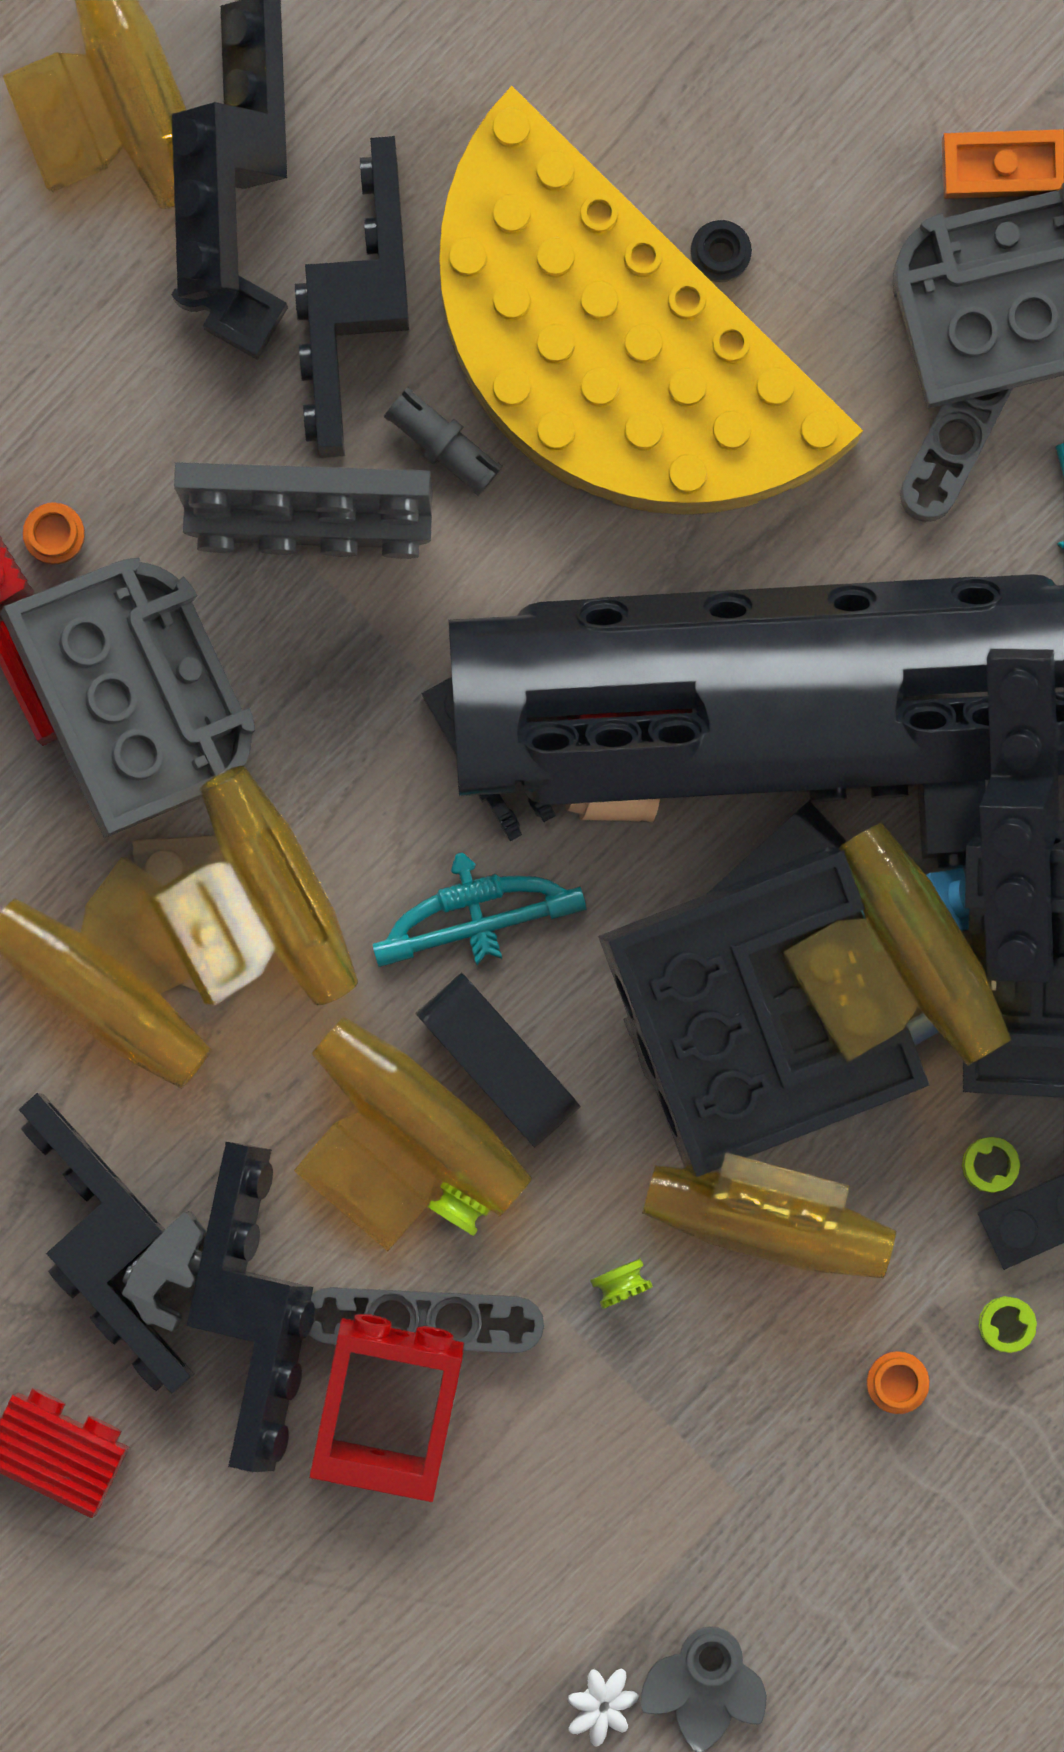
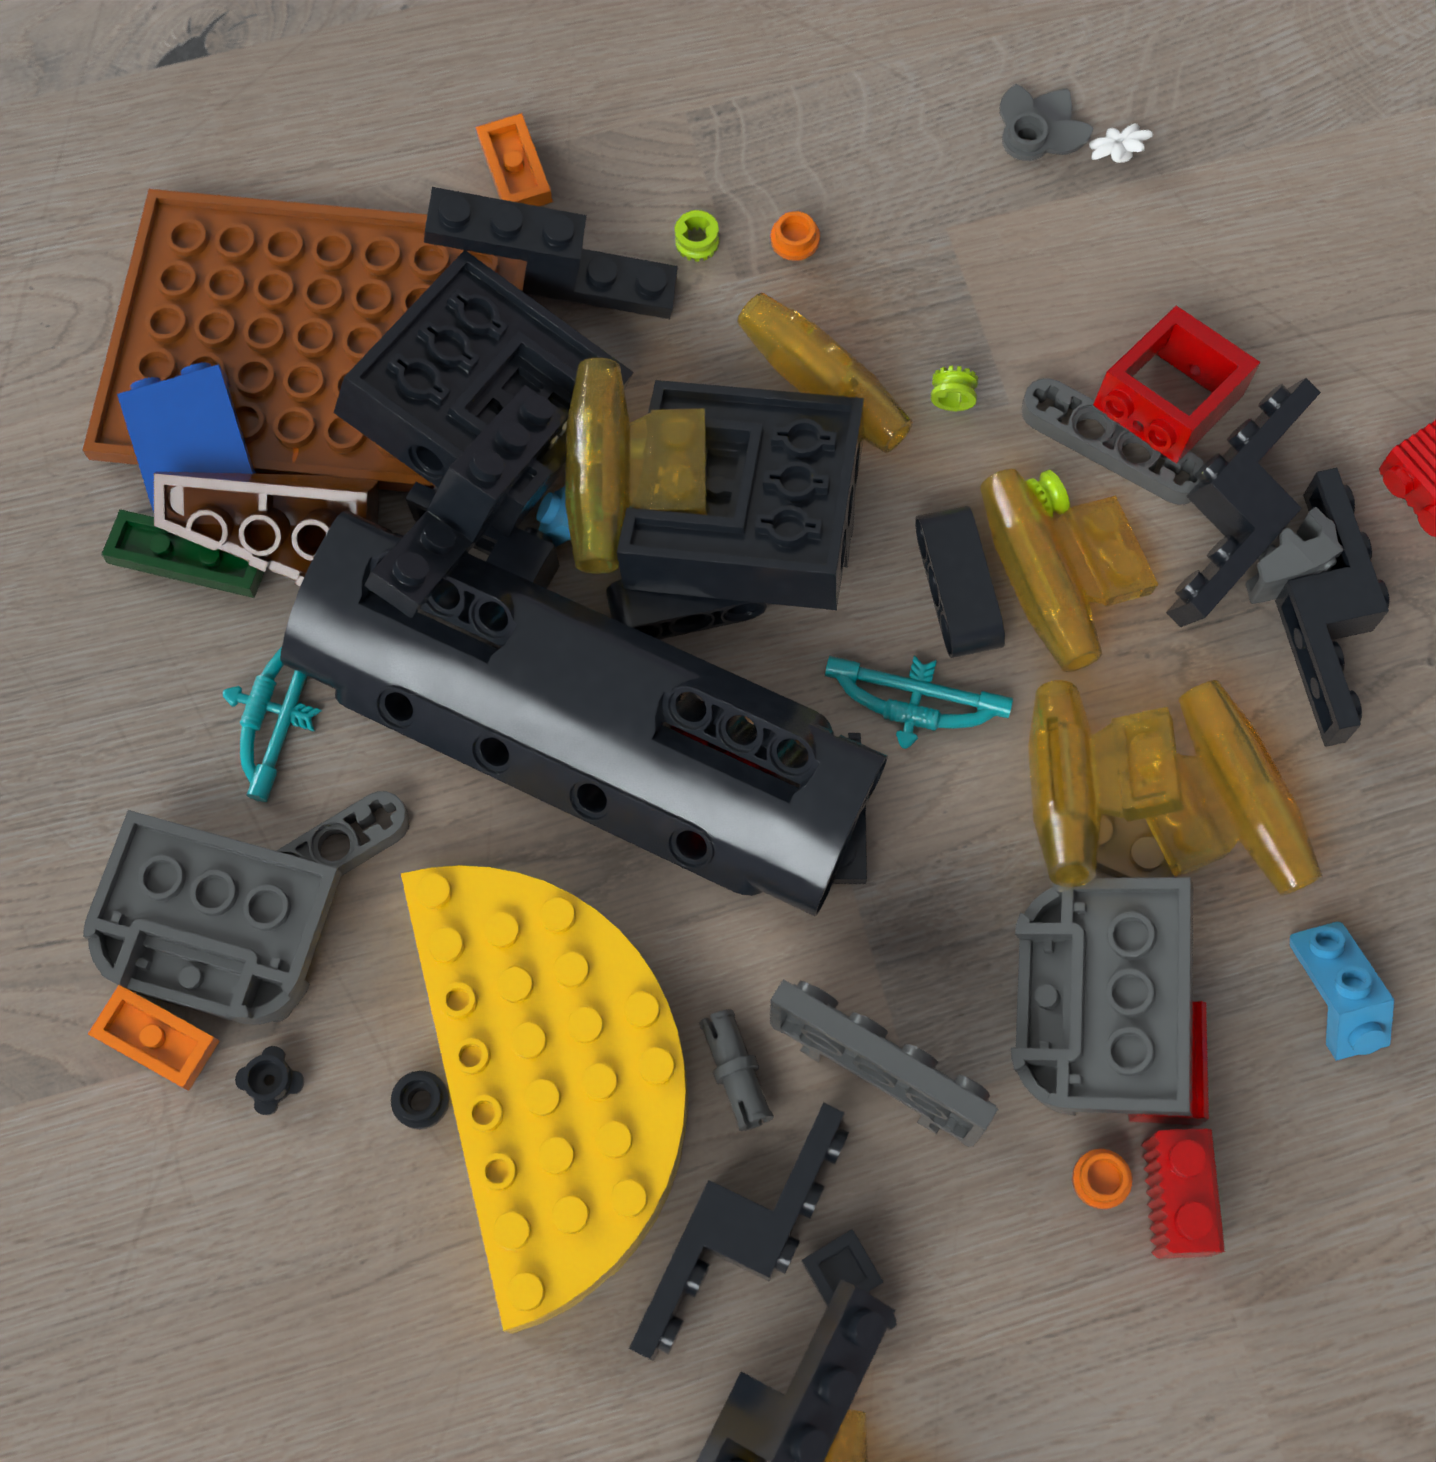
camera: 145 degrees left, 15 degrees down
(867, 172) = (253, 1080): none -> black plate
(997, 1182) = (639, 350): lime bush -> none

